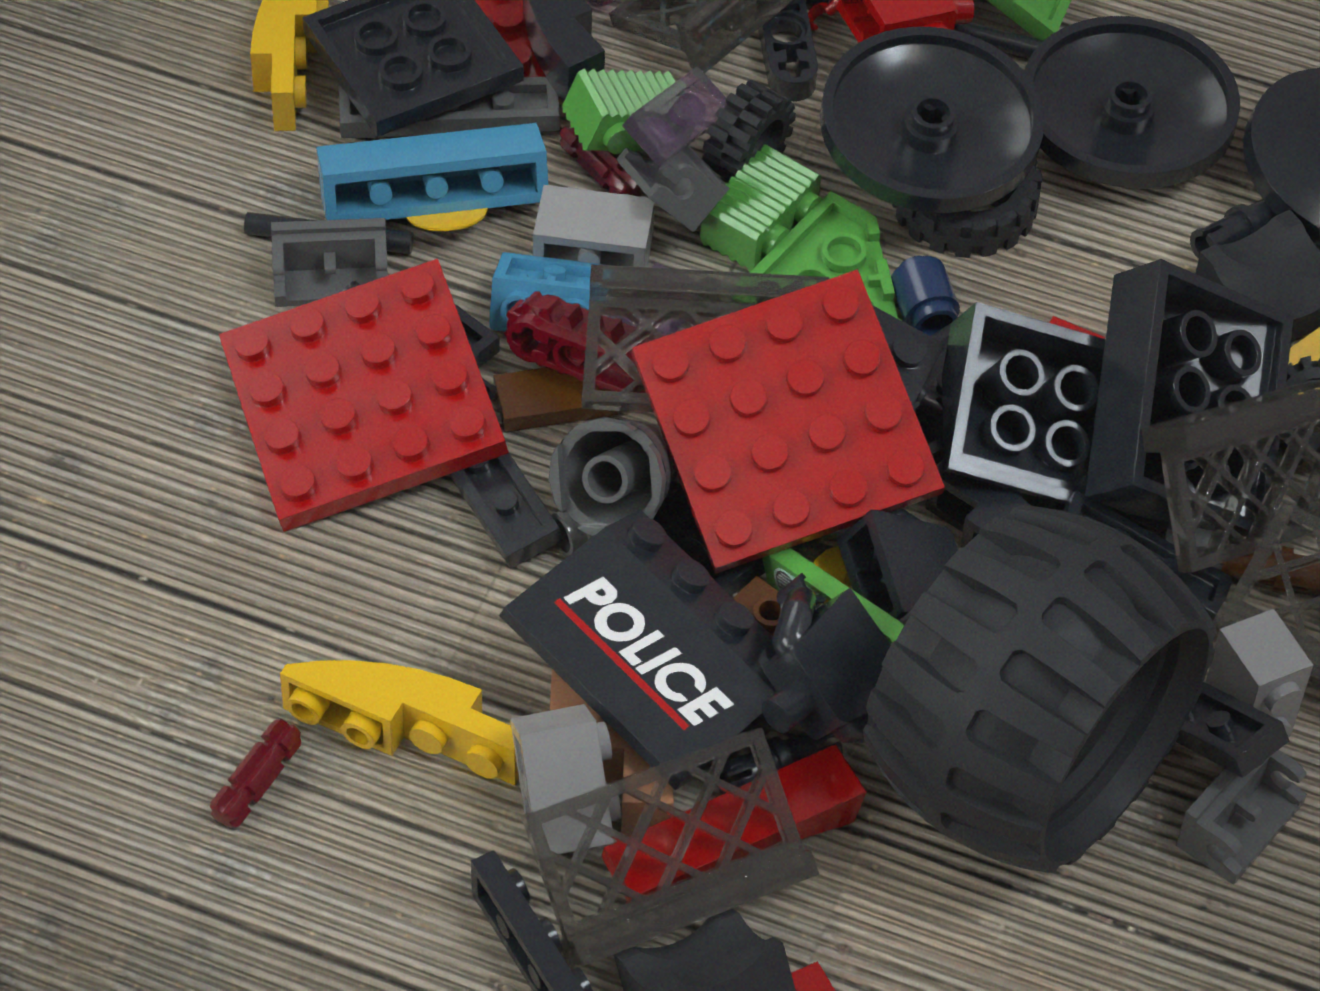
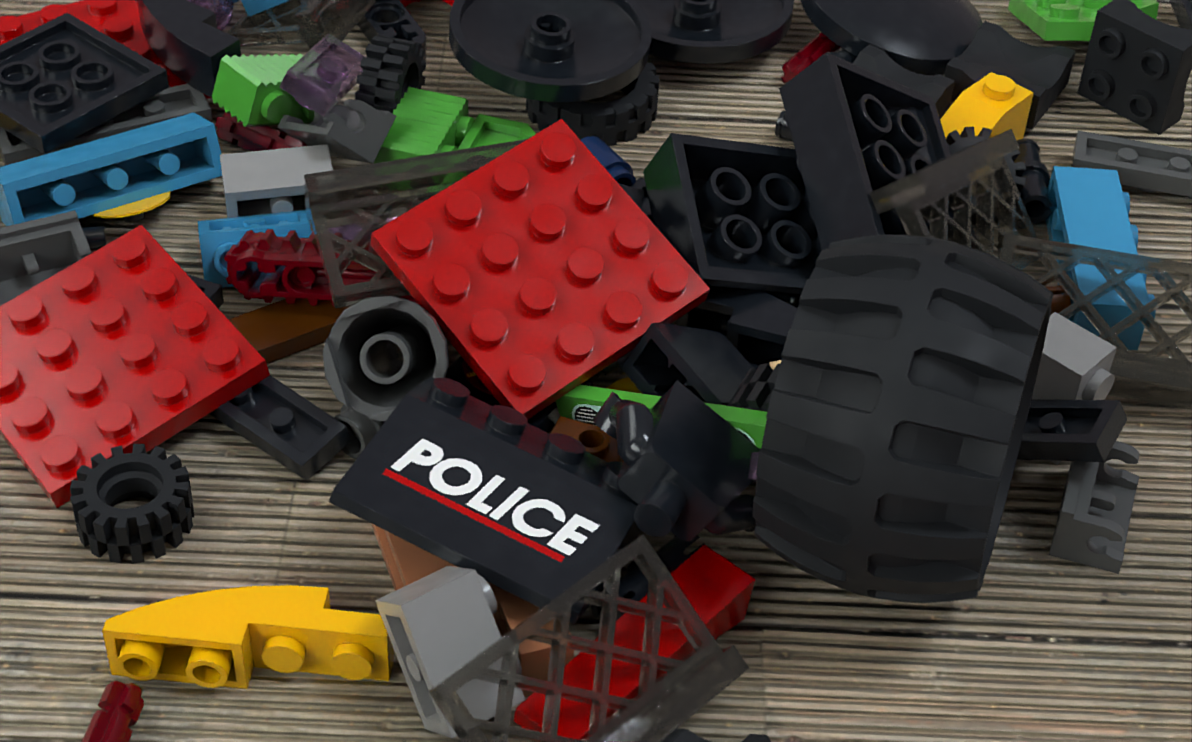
camera: 20 degrees left, 10 degrees down
(354, 576) = (135, 528): none -> black tyre
(1211, 210) = (807, 55): none -> dark red axle

